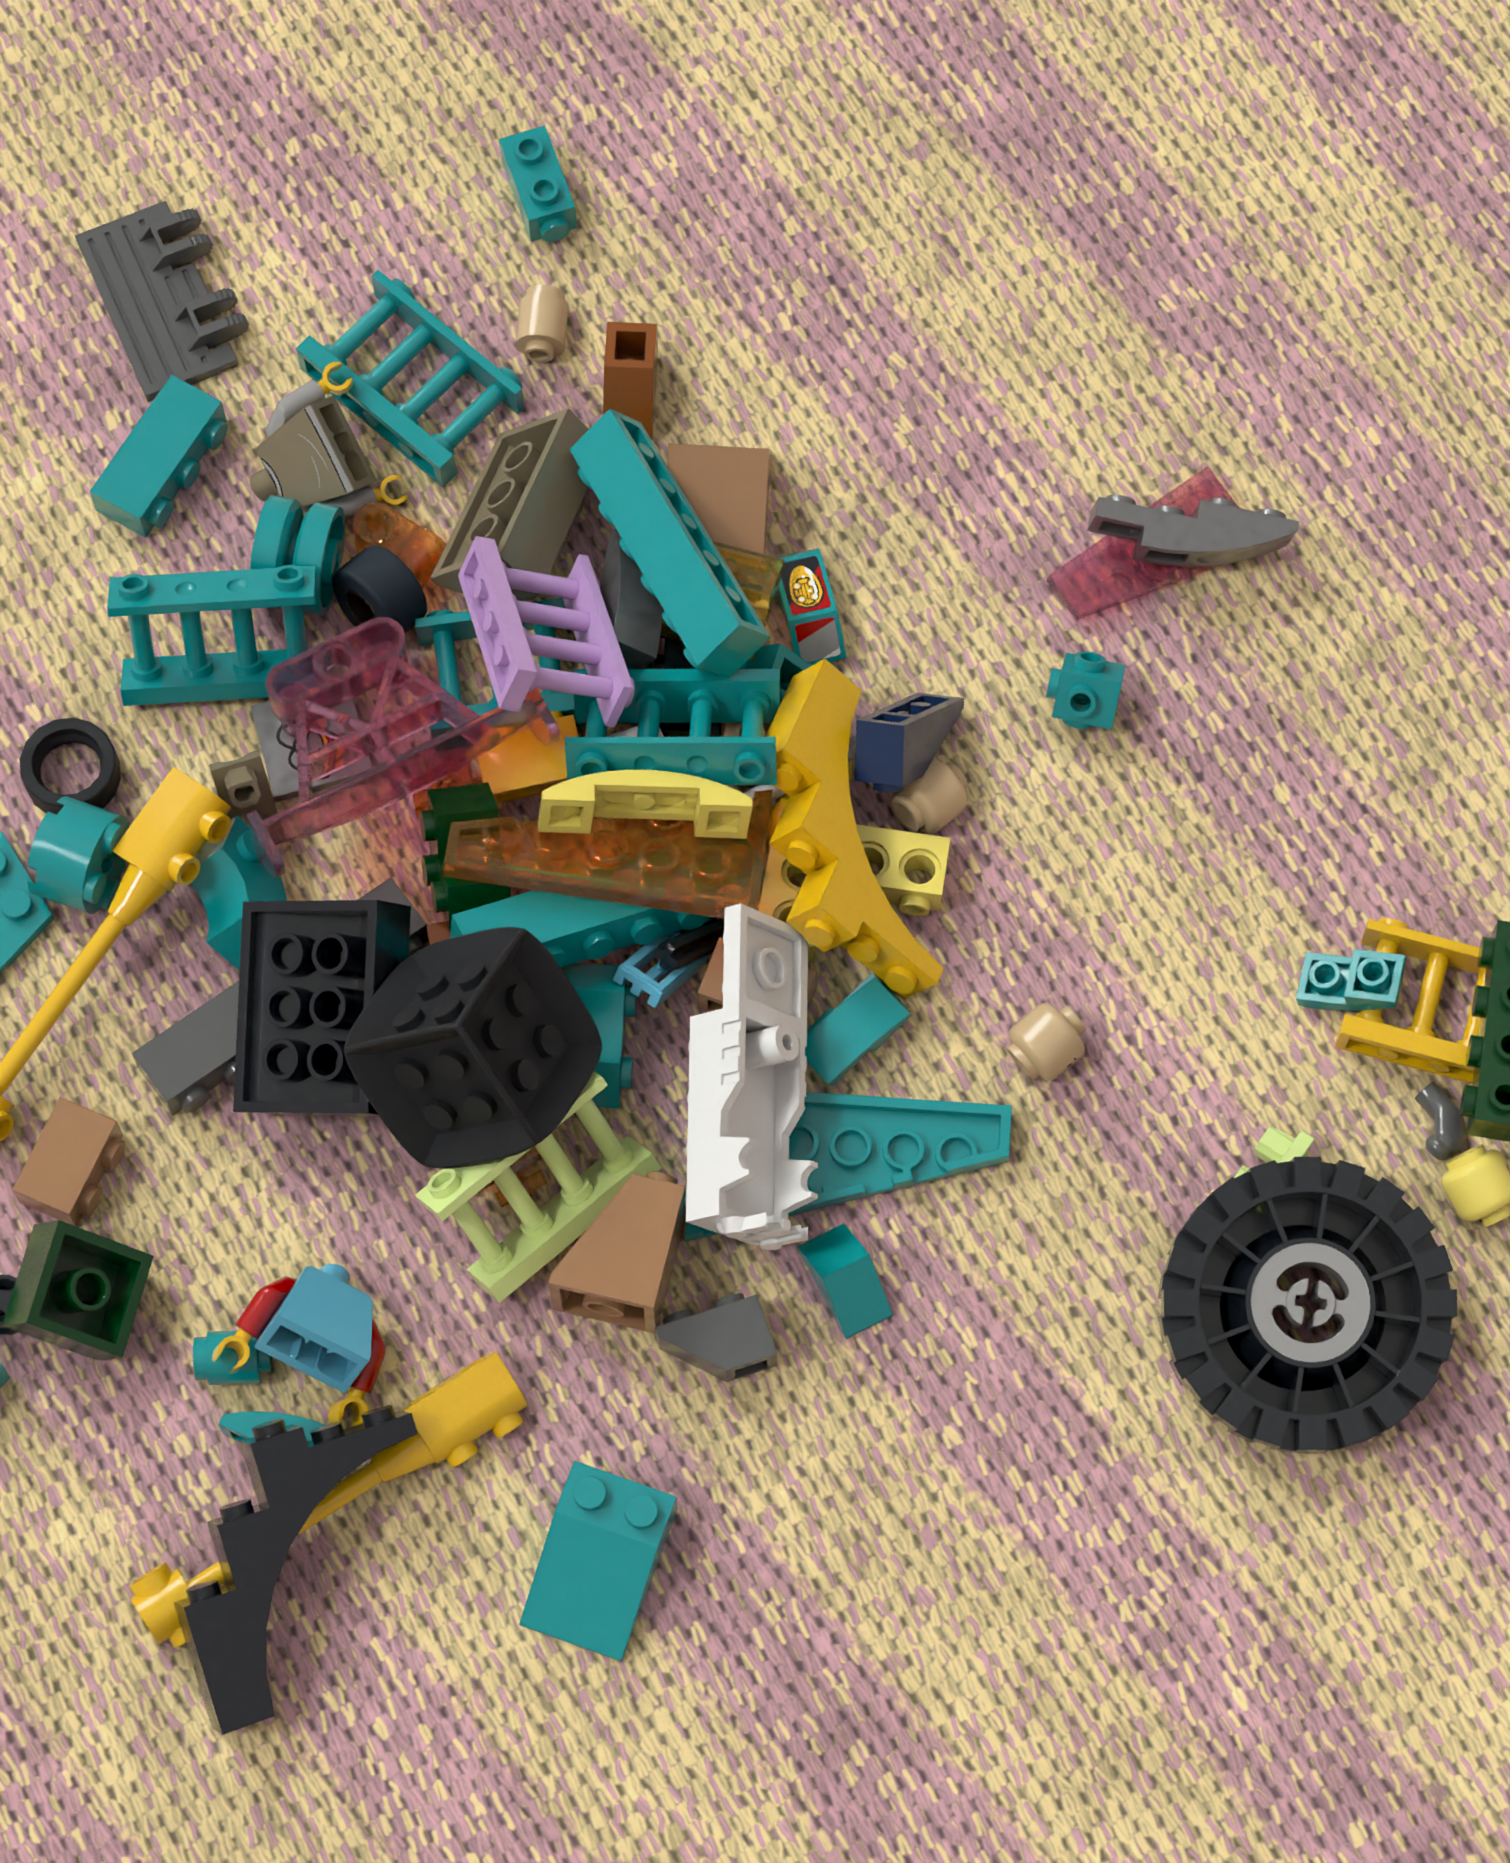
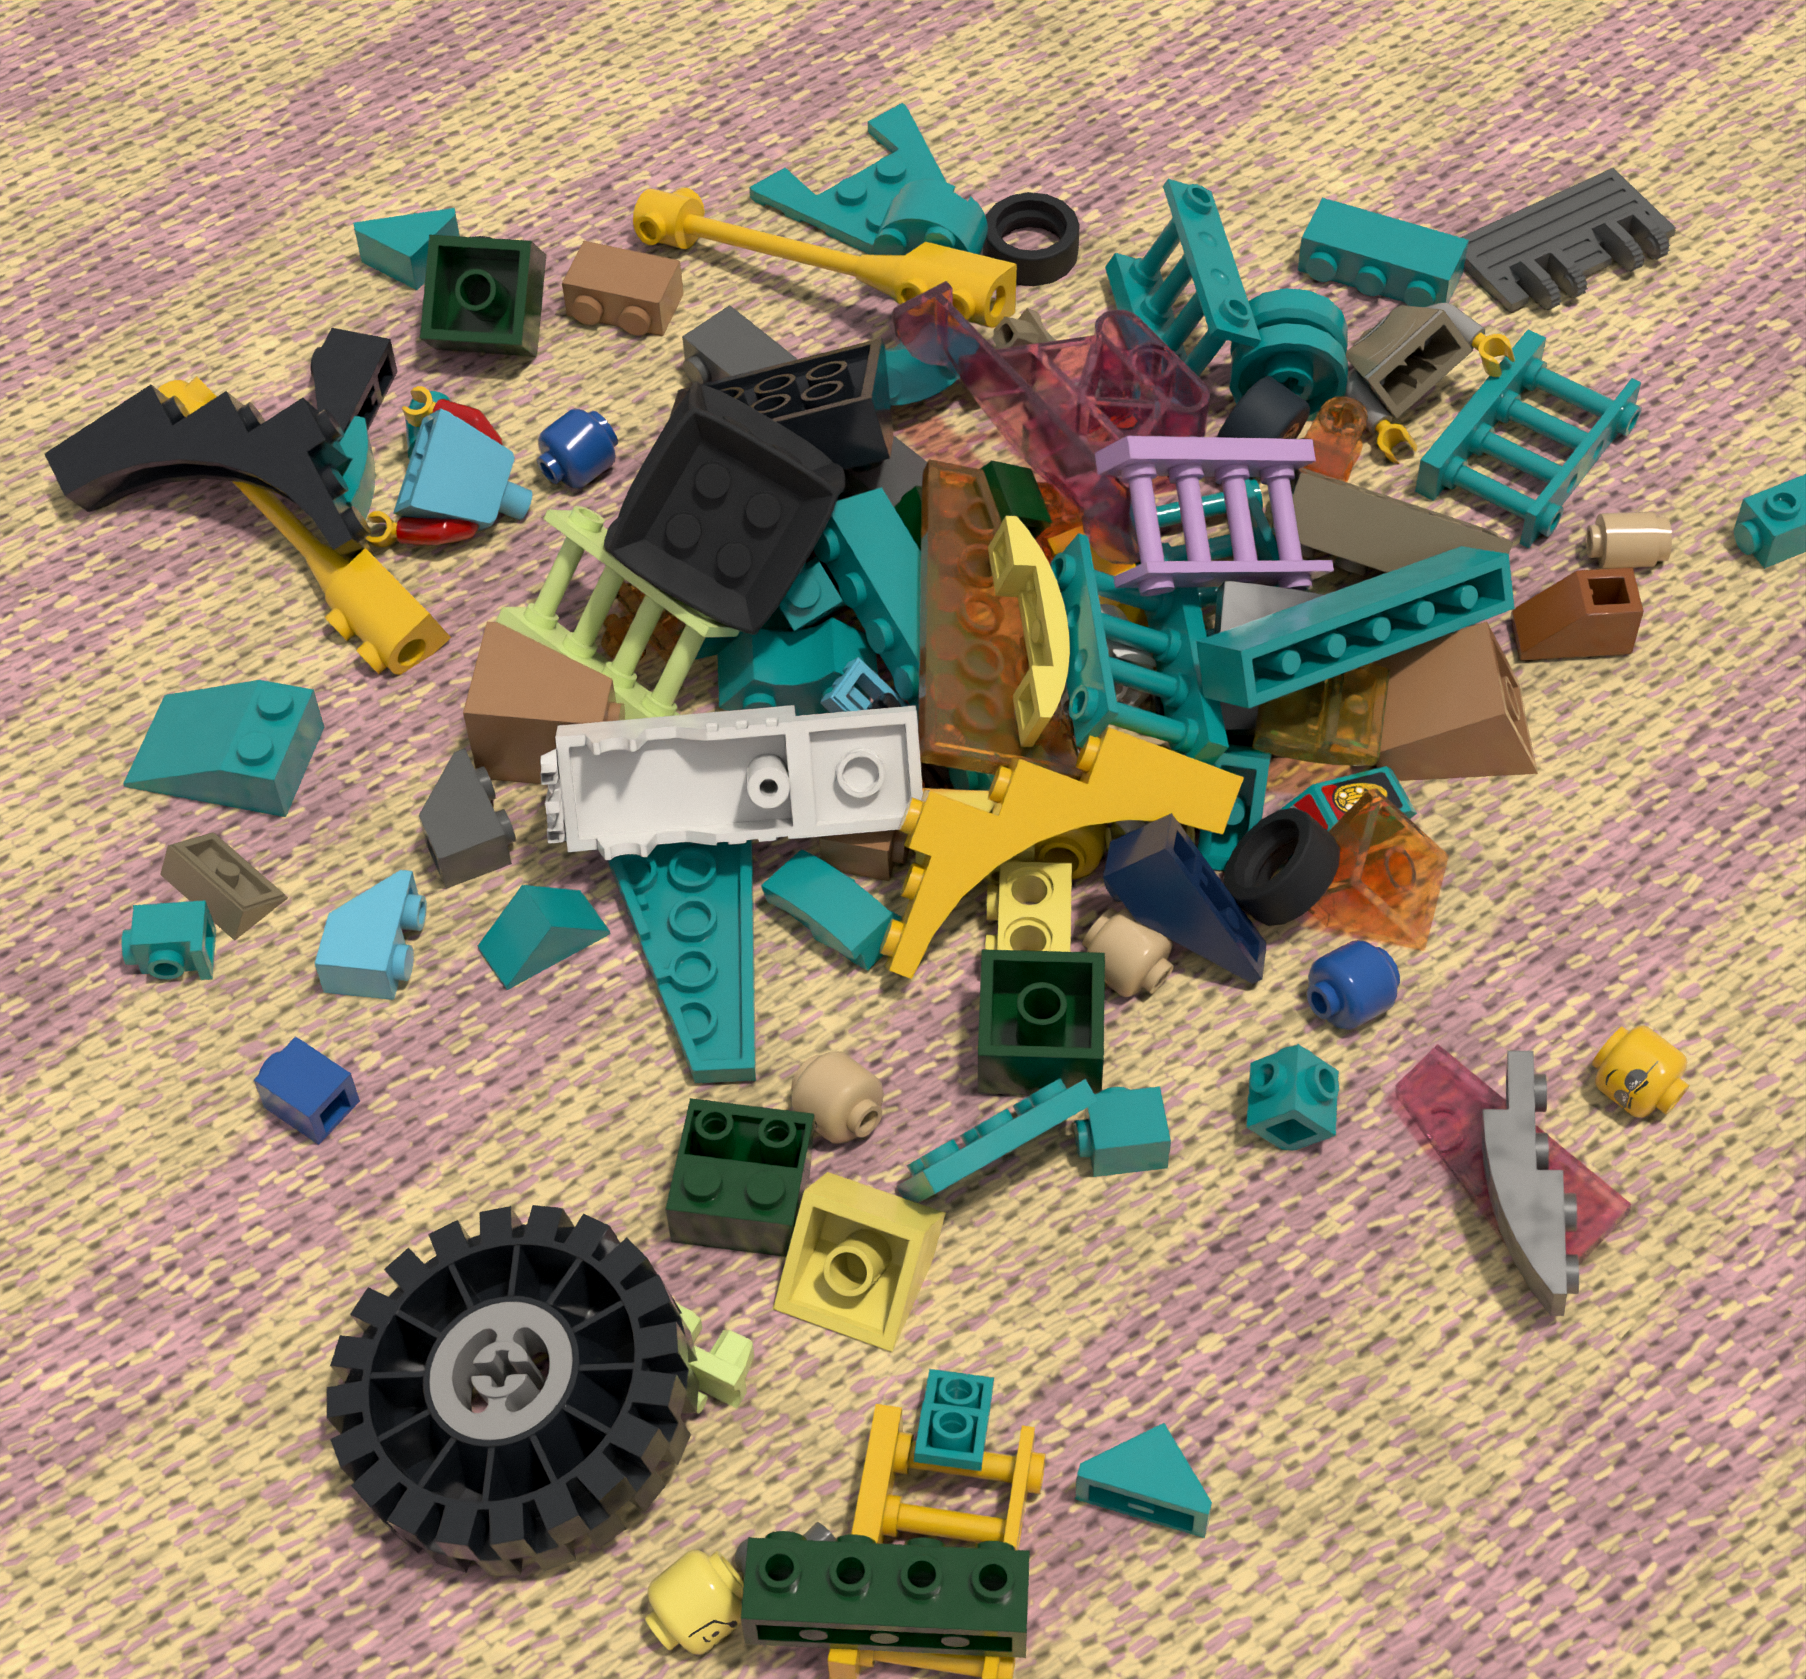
camera: 85 degrees right, 15 degrees down
(161, 1441) = (352, 375): none -> black slope
(283, 1217) = (576, 448): none -> blue head
(749, 1565) = (230, 885): none -> dark tan slope
(821, 1603) = (171, 939): none -> teal brick
(841, 1424) = (365, 943): none -> medium azure slope
(876, 594) = (1384, 875): none -> clear orange slope
(901, 637) = (1298, 883): none -> black tyre
(981, 628) = (1353, 984): none -> blue head
(991, 1481) = (306, 1089): none -> blue brick
(999, 870) = (1040, 1020): none -> dark green brick
(1087, 434) = (1641, 1071): none -> yellow head
(1099, 824) = (1124, 1132): none -> teal brick
(1117, 917) = (994, 1138): none -> teal plate
(1119, 1120) = (740, 1177): none -> dark green slope
(1196, 1038) = (857, 1259): none -> light yellow slope
(1402, 848) = (1147, 1481): none -> teal slope

